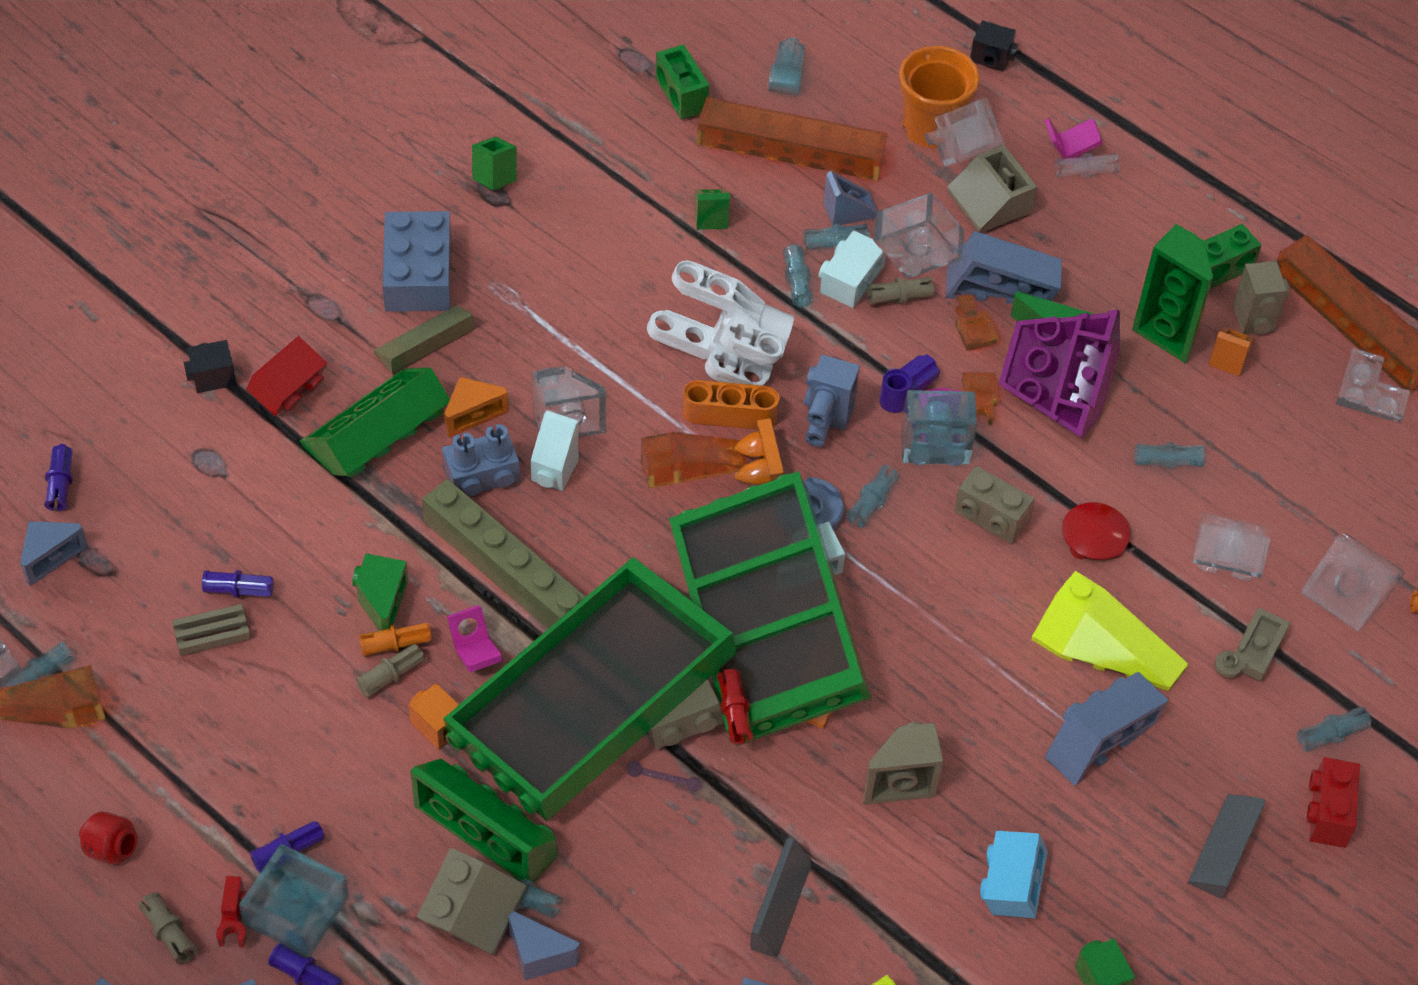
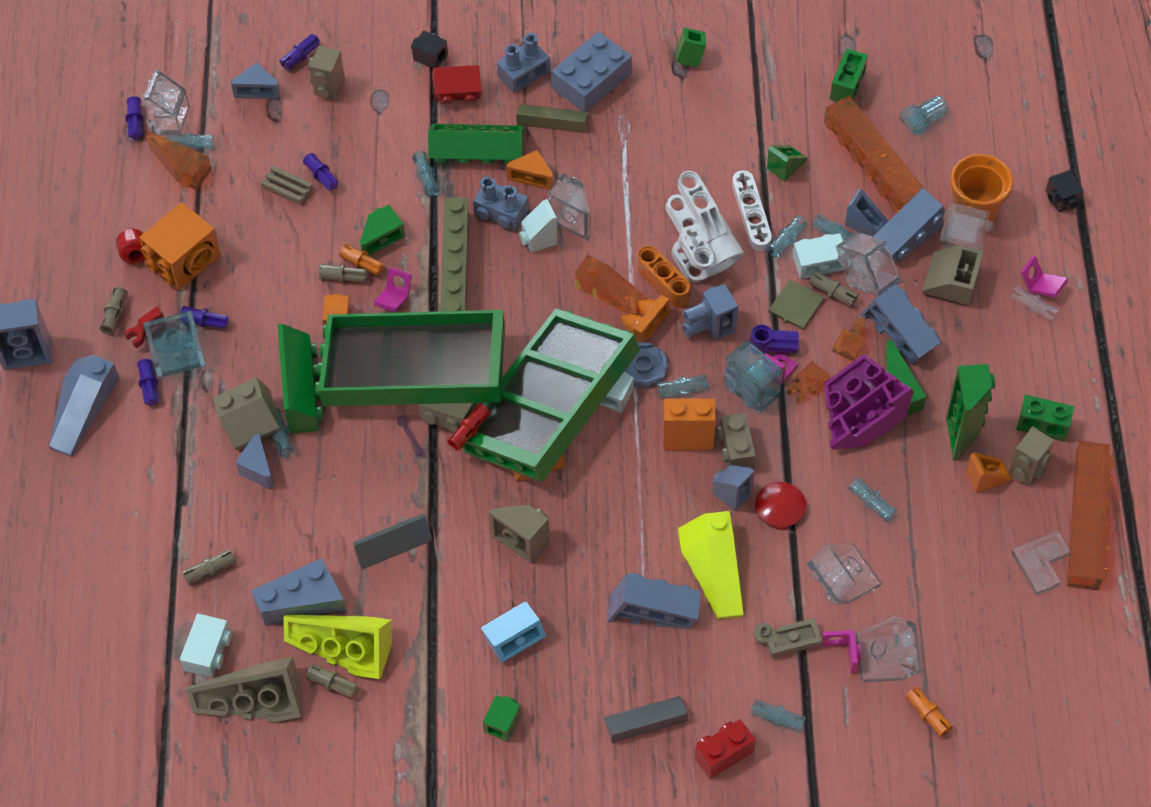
camera: 50 degrees right, 5 degrees up
(126, 471) = (326, 72): none -> dark tan brick
(176, 788) = (179, 246): none -> orange brick
(335, 306) = (523, 64): none -> sand blue brick
(357, 496) = (425, 174): none -> clear light blue pin
(737, 270) = (751, 210): none -> white beam
(880, 334) = (796, 304): none -> olive piece
(906, 164) = (912, 225): none -> sand blue wedge
(932, 521) = (688, 424): none -> orange slope
(1042, 545) = (733, 485): none -> sand blue slope
(1320, 606) = (847, 638): none -> dark pink bracket

